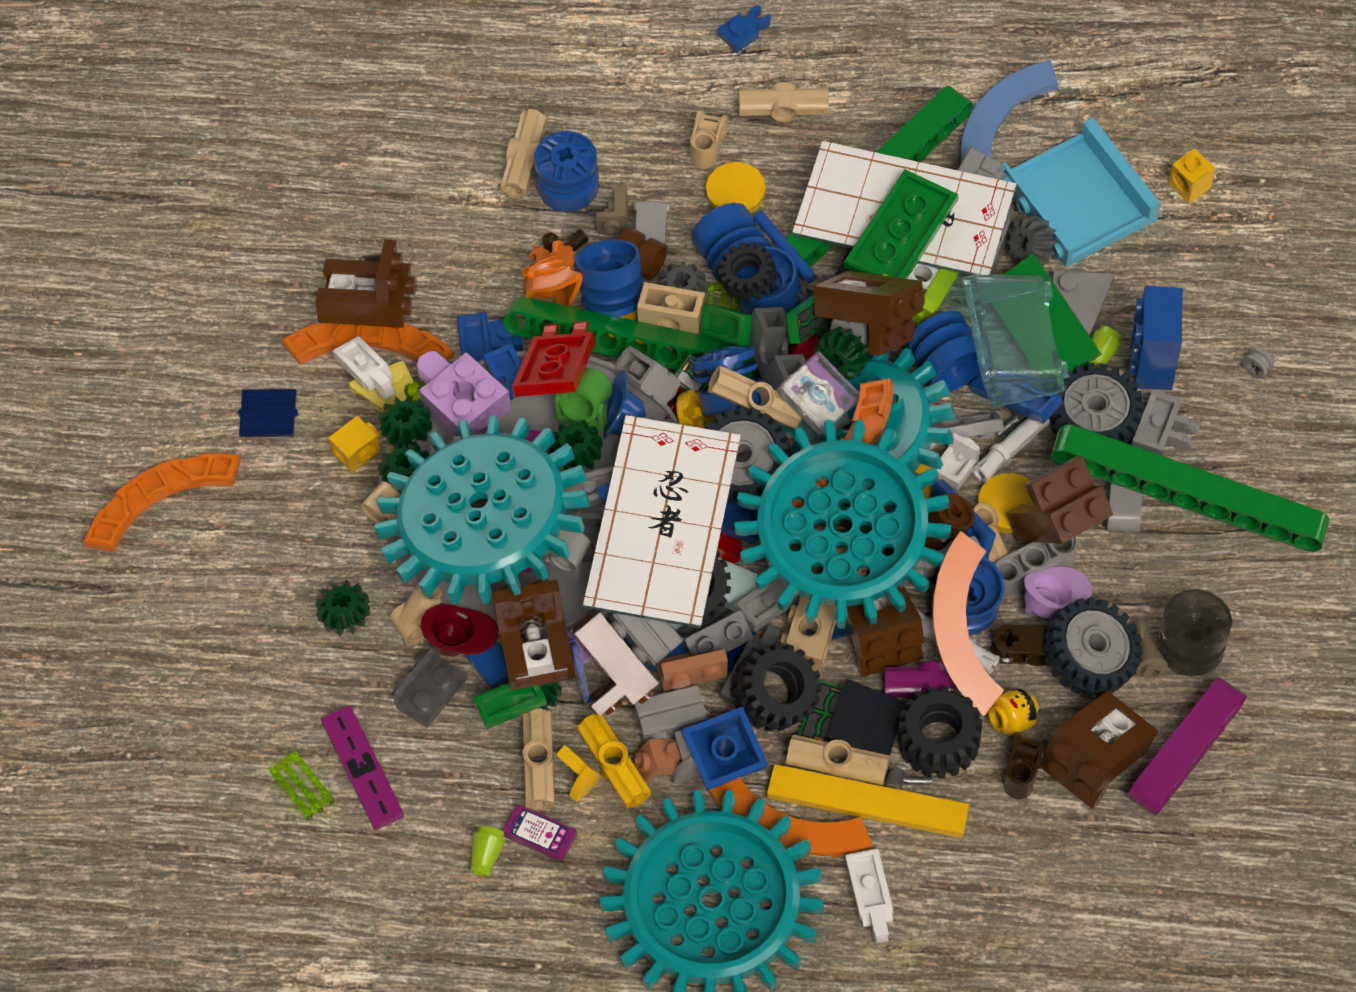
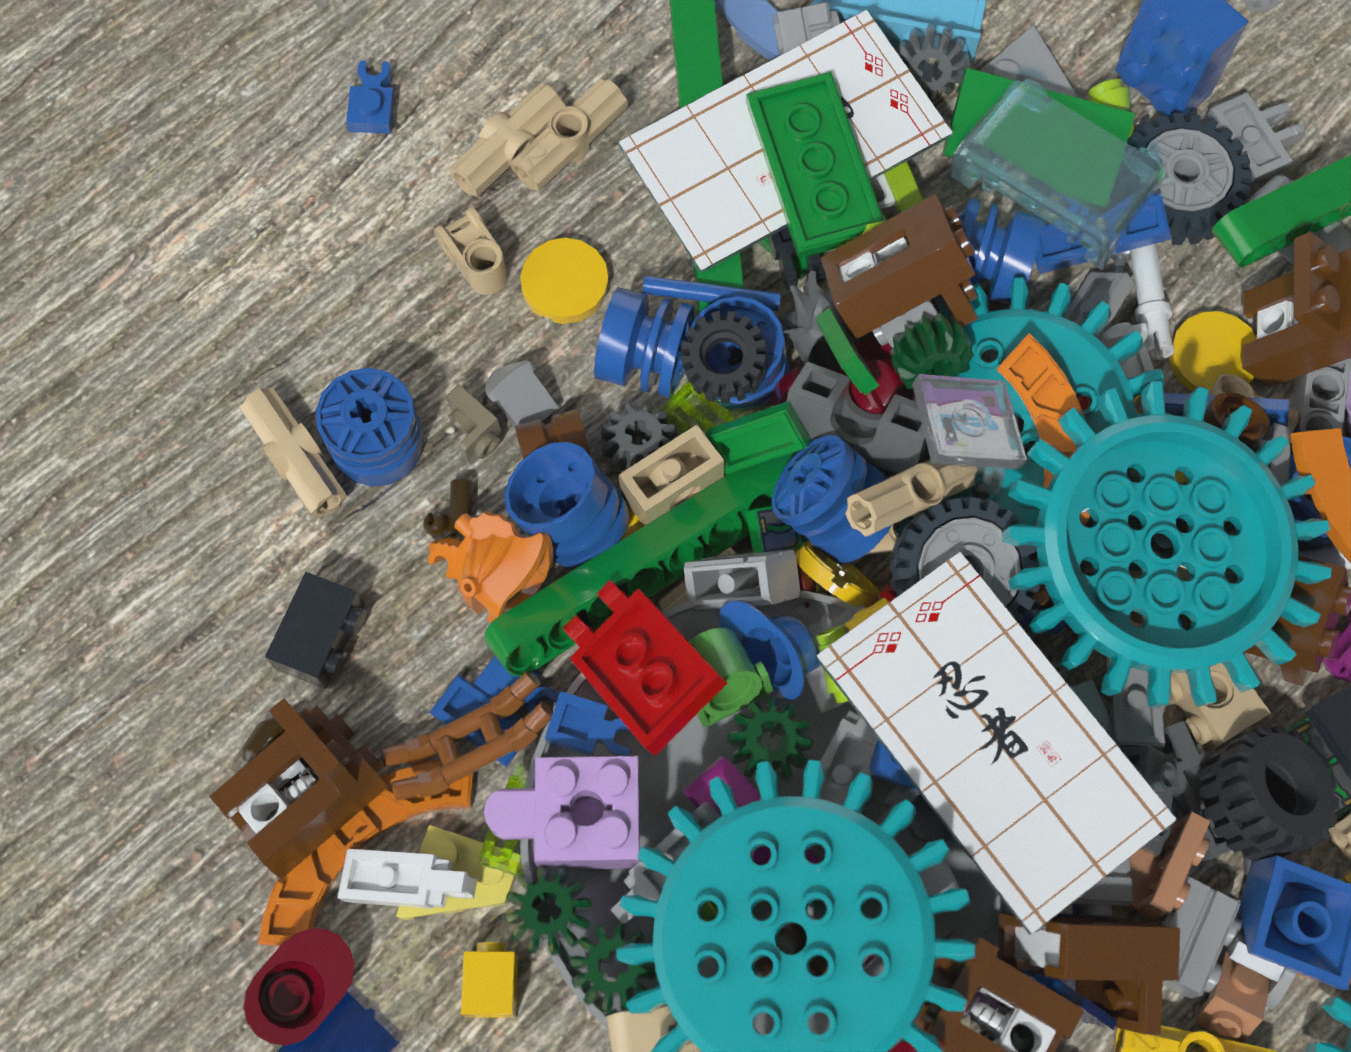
camera: 50 degrees left, 10 degrees up
(277, 365) = (298, 986): none -> dark red piece
(443, 330) = (443, 741): none -> dark orange piece
(447, 237) = (316, 630): none -> black brick
(802, 123) = (586, 118): none -> tan piece

